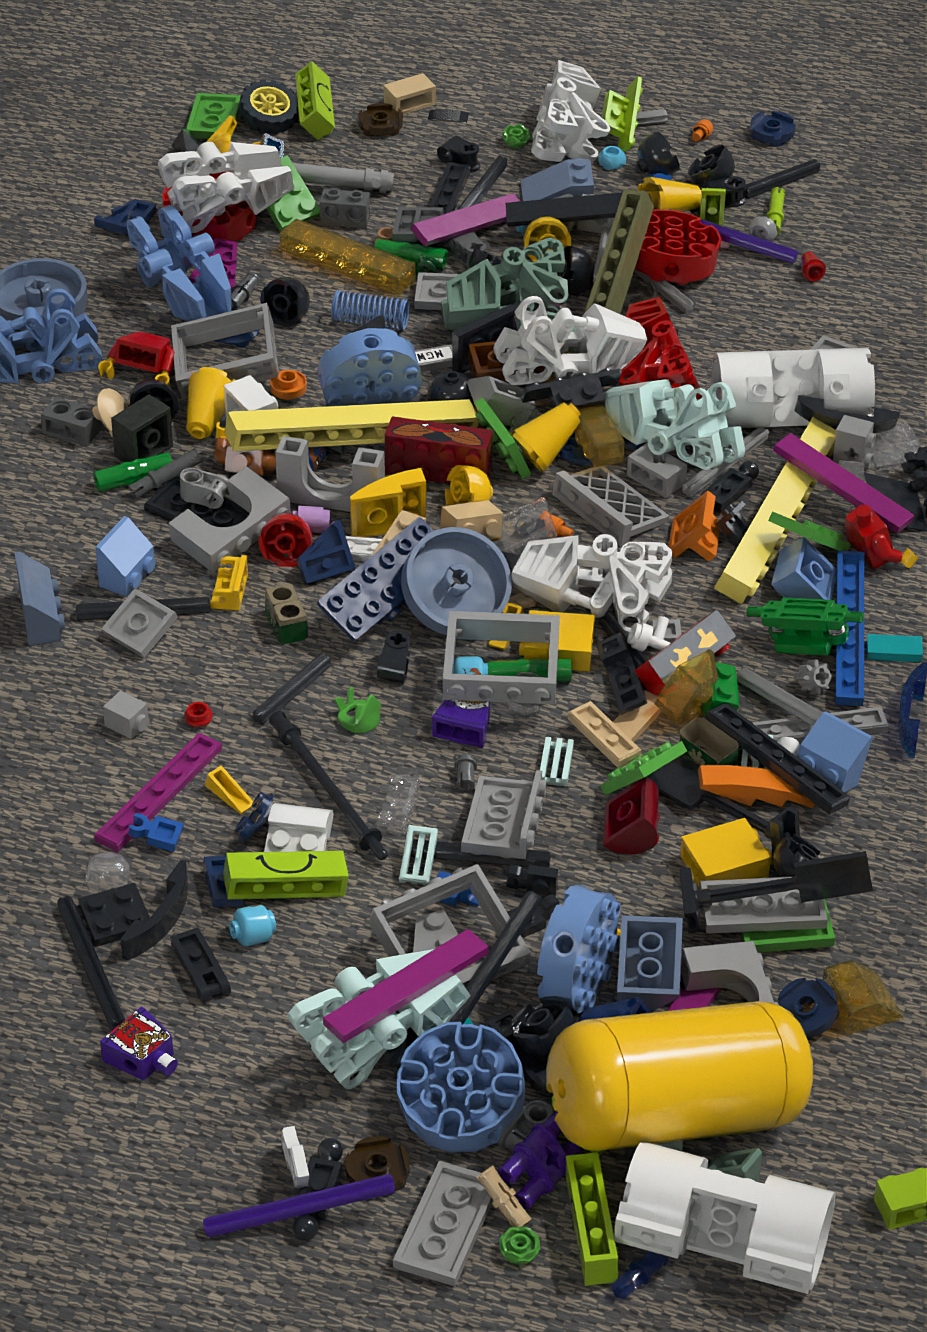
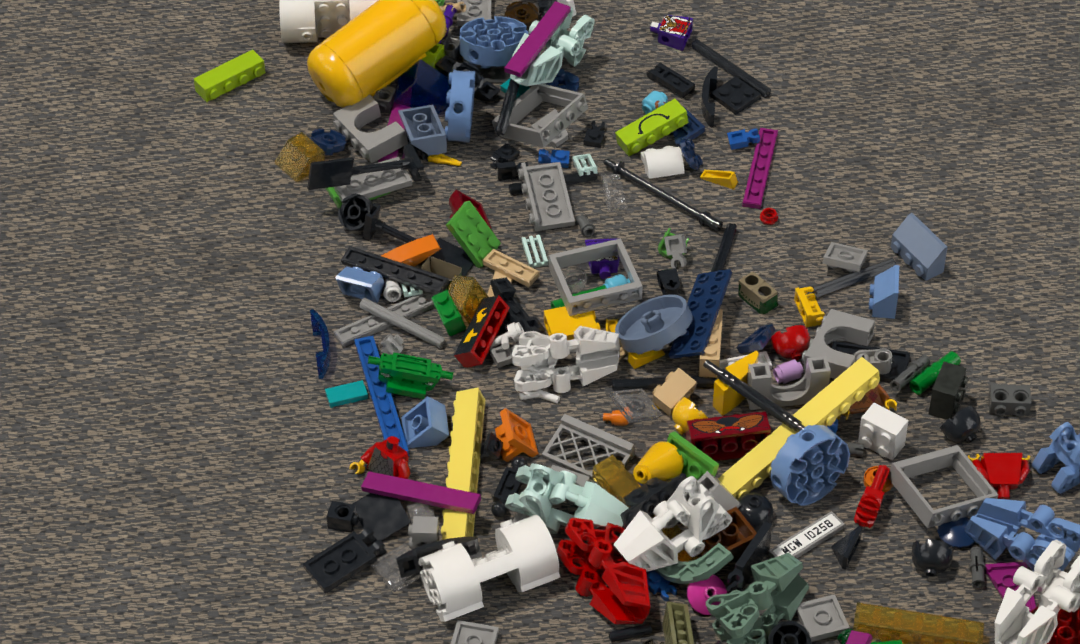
camera: 160 degrees right, 5 degrees up
(106, 872) = (755, 112): clear hair -> none
(108, 405) = (986, 406): tan dish -> none
(126, 714) = (809, 199): light grey brick -> none
(205, 401) = (923, 436): yellow cone -> none
(309, 354) = (871, 499): none -> red gear
(360, 685) = (676, 246): none -> light grey plate
(365, 909) = (594, 136): none -> black plate
(387, 440) = (755, 397): none -> black axle
(402, 309) = (888, 575): medium blue piece -> none
(726, 853) = (407, 212): yellow brick -> none
(811, 531) = (428, 437): bright green wing -> none

